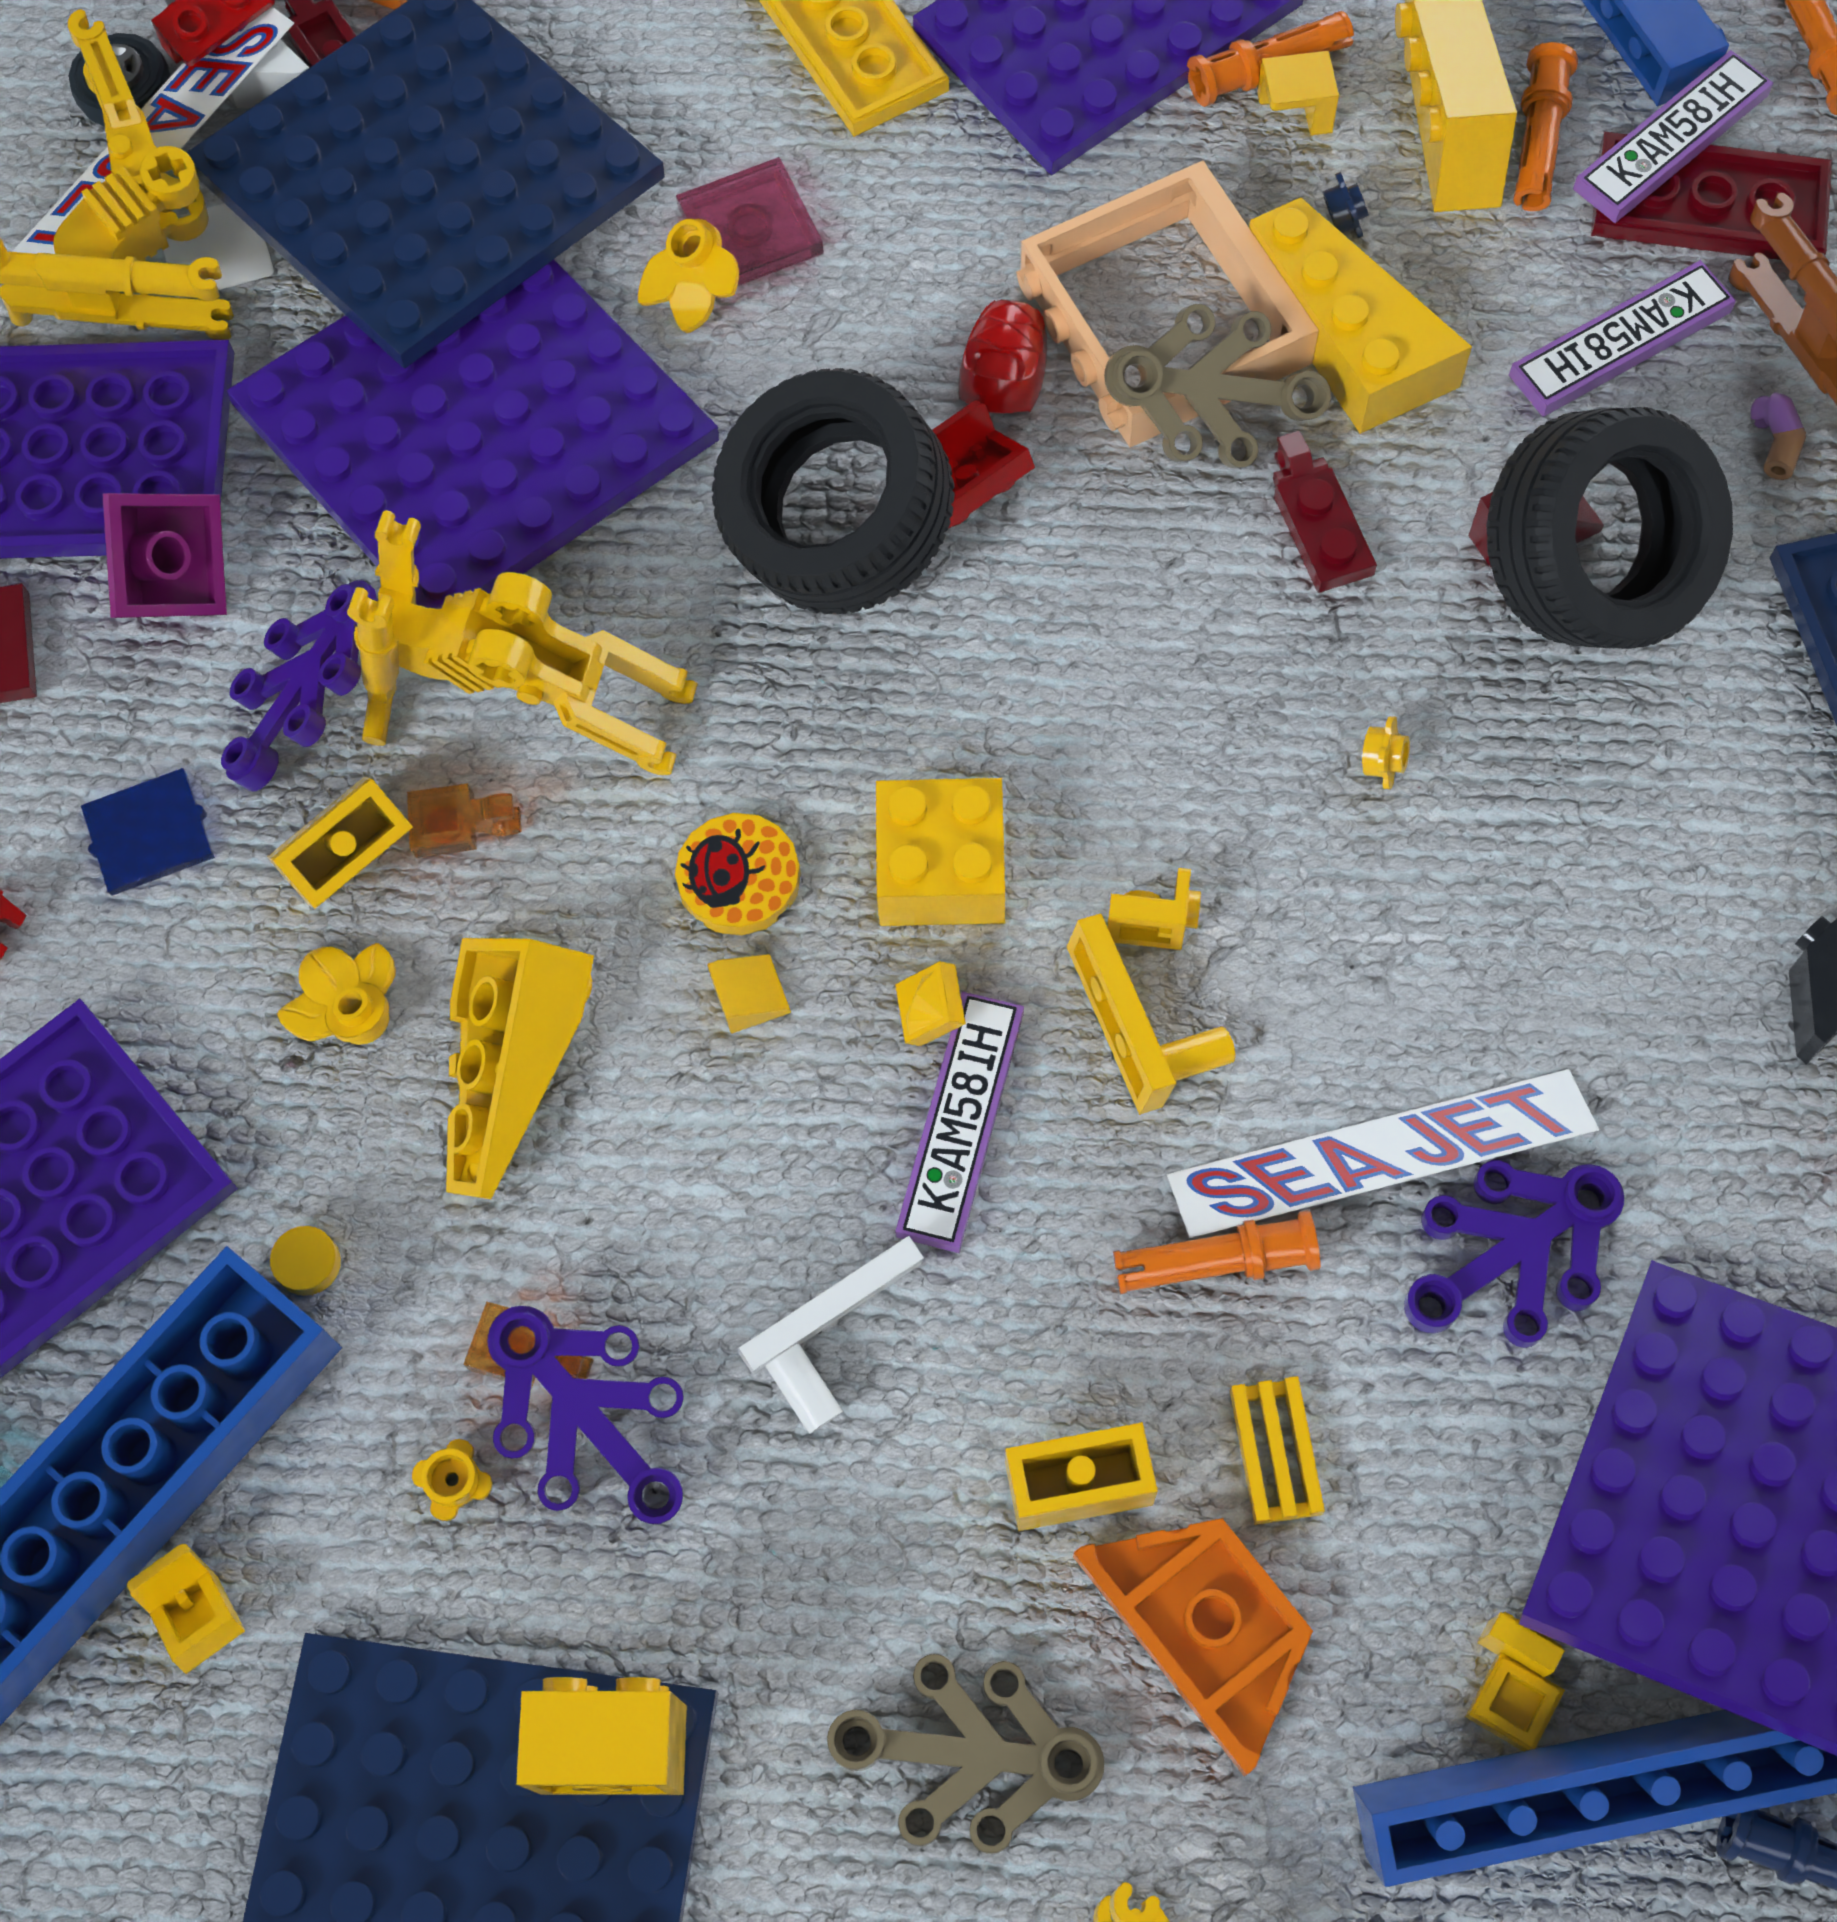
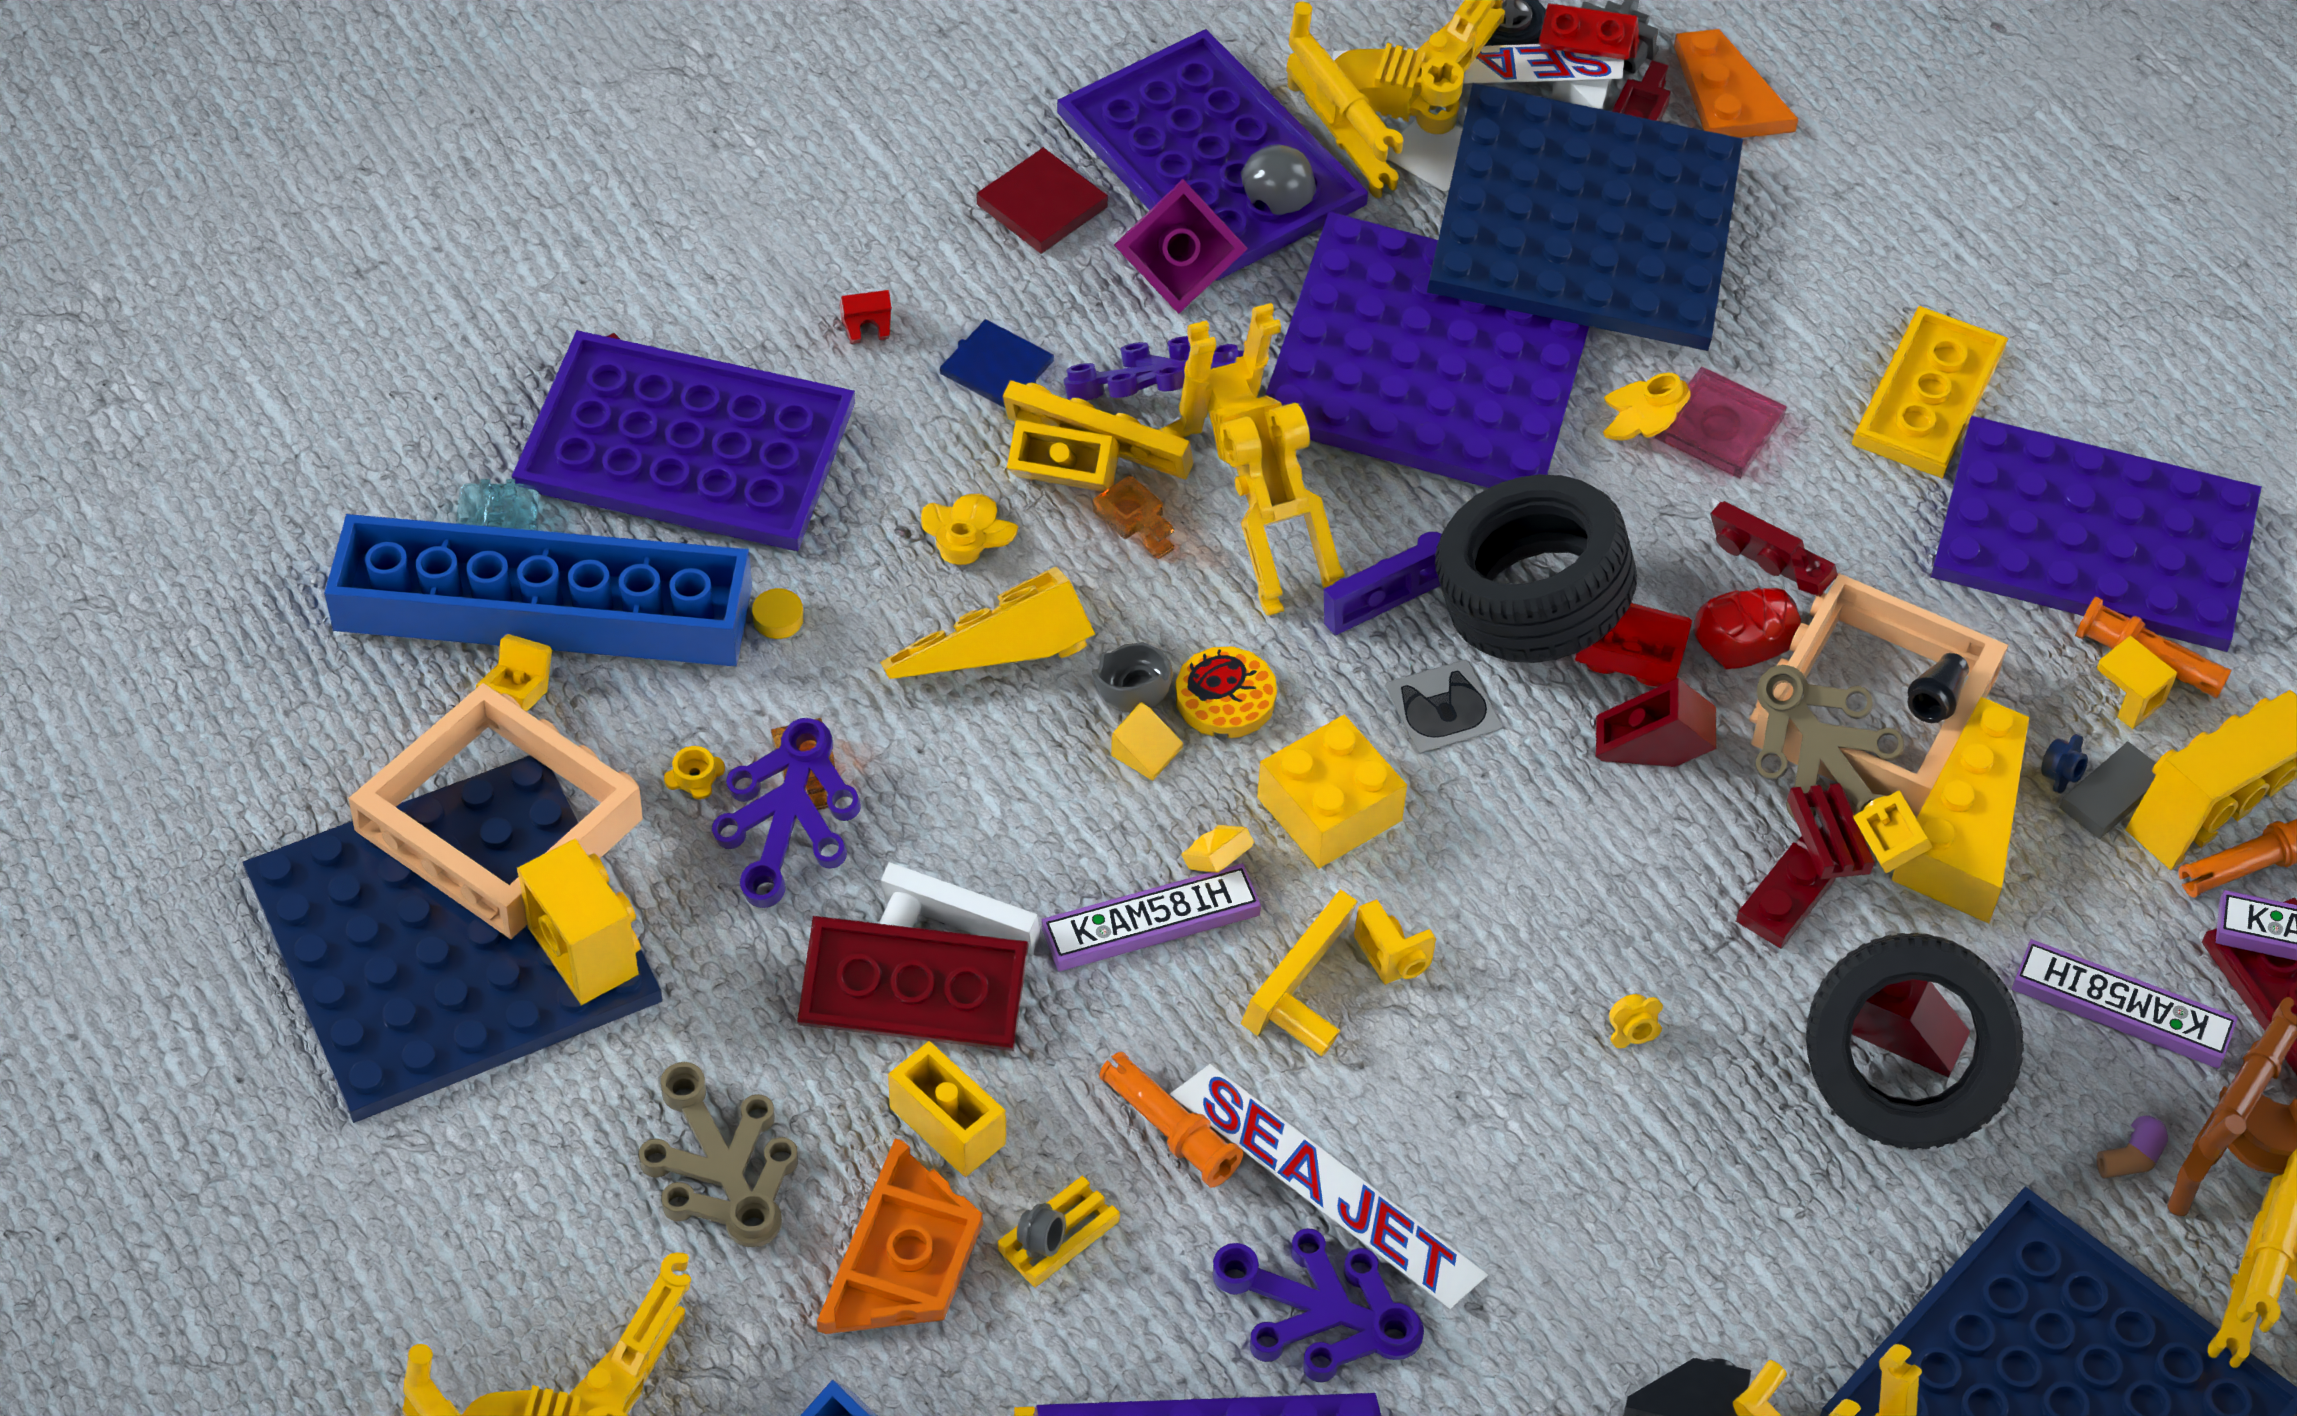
camera: 50 degrees right, 15 degrees down
(149, 408) = (1279, 178): none -> dark grey hair
(303, 796) = (1141, 444): none -> yellow plate
(398, 1854) = (446, 867): none -> light nougat window
(664, 950) = (1133, 676): none -> dark grey hair
(725, 640) = (1382, 586): none -> dark purple plate
(890, 1415) = (913, 983): none -> dark red tile
(894, 684) = (1443, 706): none -> sticker
(947, 277) = (1771, 548): none -> dark red hinge
(1070, 514) = (1658, 727): none -> dark red slope
(1223, 249) = (1937, 690): none -> black cone
(1286, 1472) = (1041, 1230): none -> dark grey plate
(1304, 436) = (1839, 831): none -> dark red tile
(1358, 391) = (1892, 831): none -> yellow bracket
(1393, 191) = (2110, 790): none -> dark grey tile

